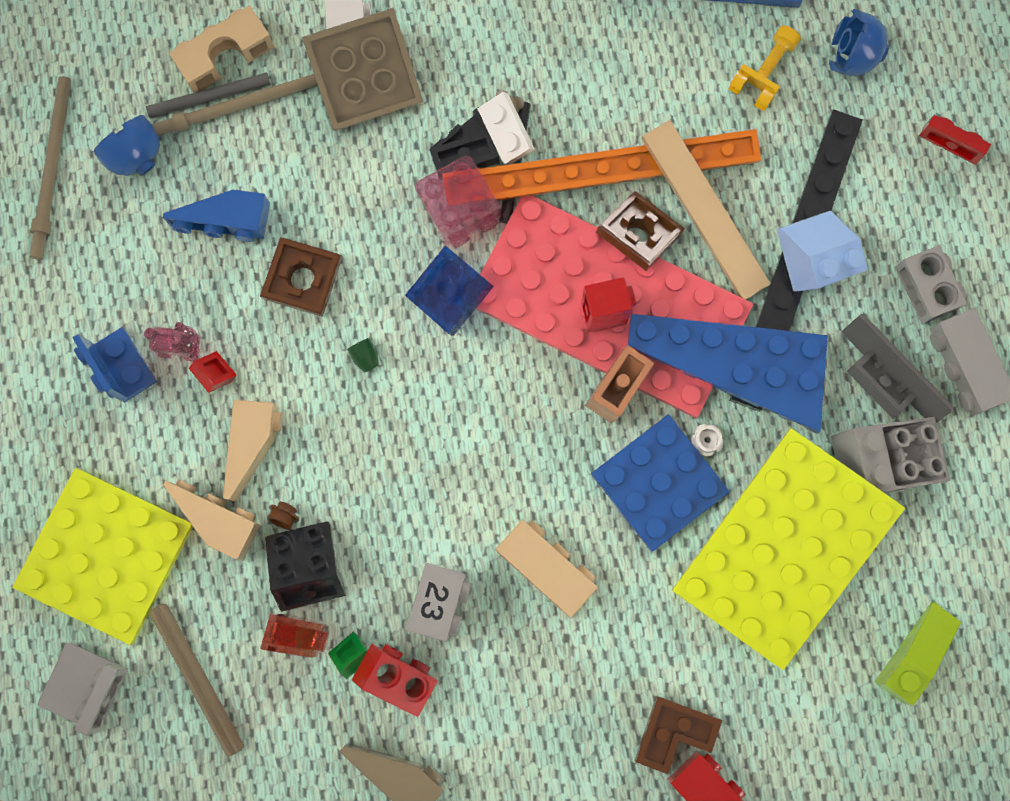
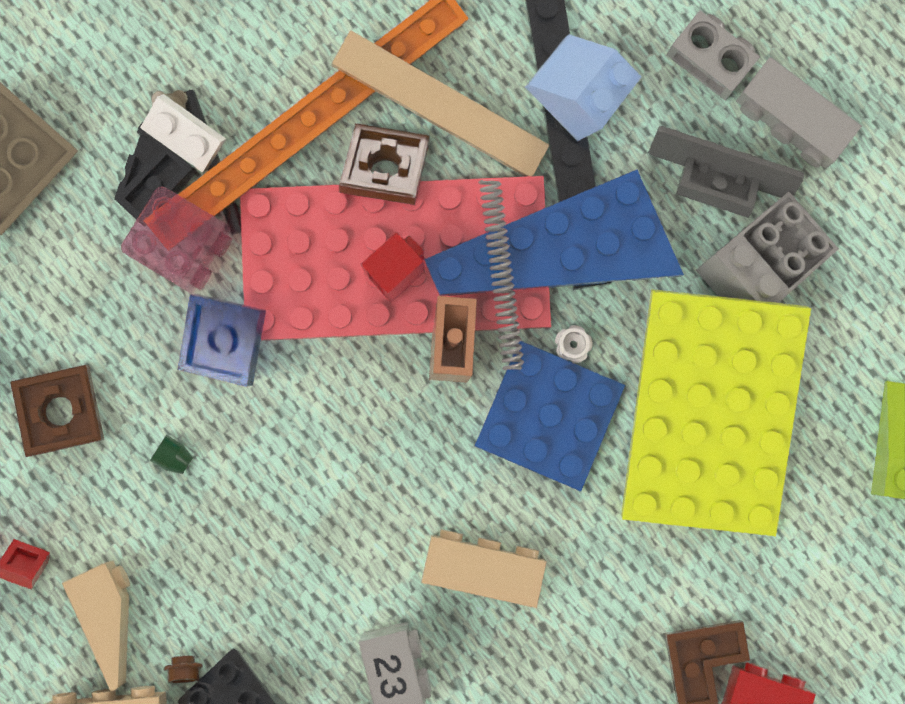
camera: 35 degrees left, 5 degrees up
(682, 358) = (505, 274): none -> light grey piece

